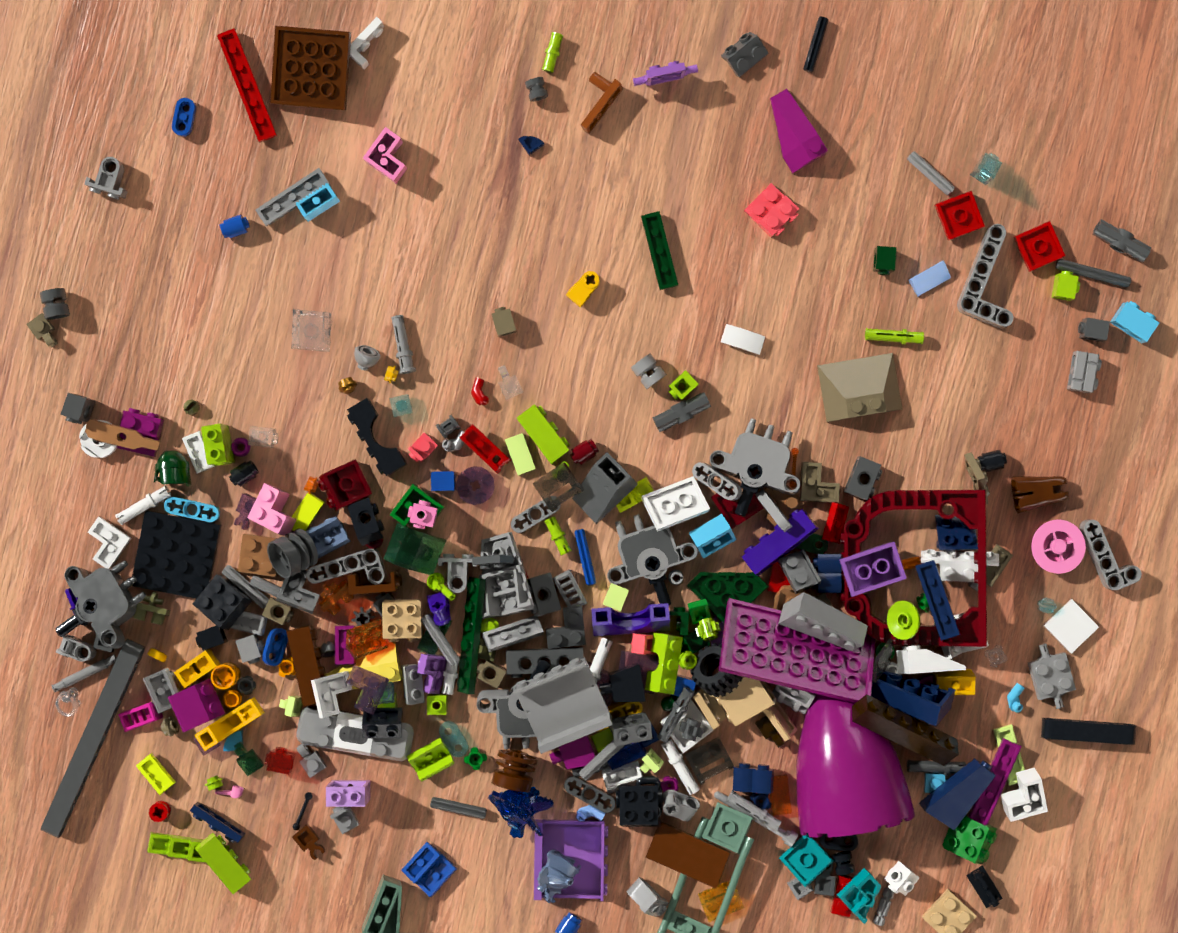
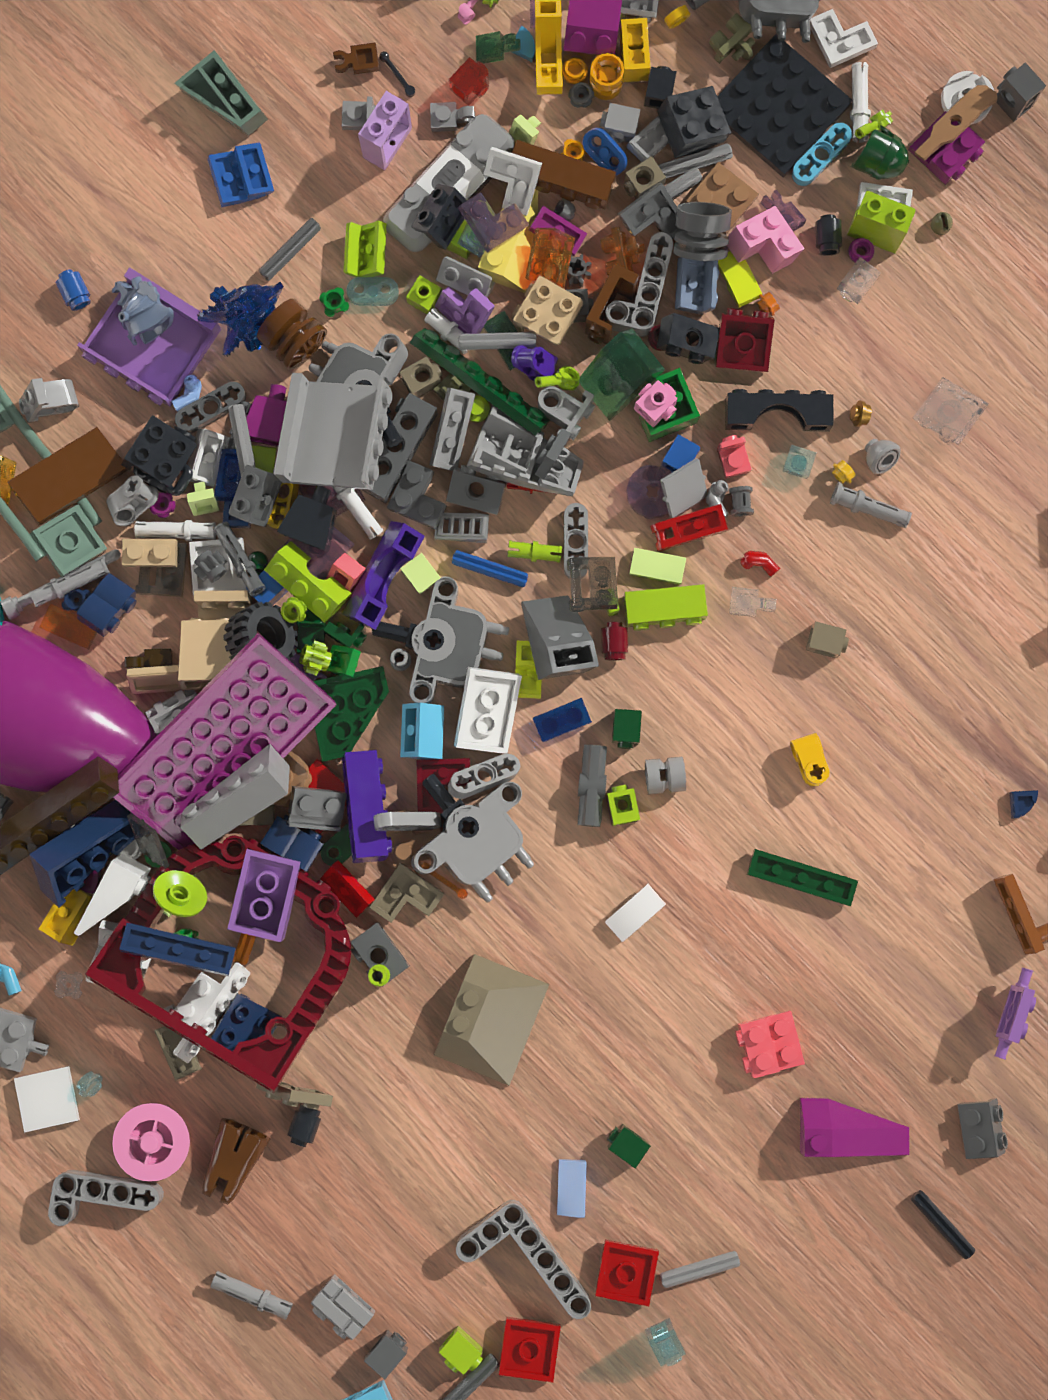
camera: 120 degrees right, 5 degrees down
(149, 485) = (878, 119): none -> lime plate
(462, 466) = (684, 488): none -> light grey piece
(633, 412) = (626, 728): none -> dark green brick
(652, 455) = (562, 720): none -> clear blue plate
(705, 773) = (149, 552): none -> tan plate
(882, 469) = (372, 975): none -> lime pin
(894, 336) = (521, 1110): lime pin -> none
(1109, 430) = (261, 1299): none -> light grey pin

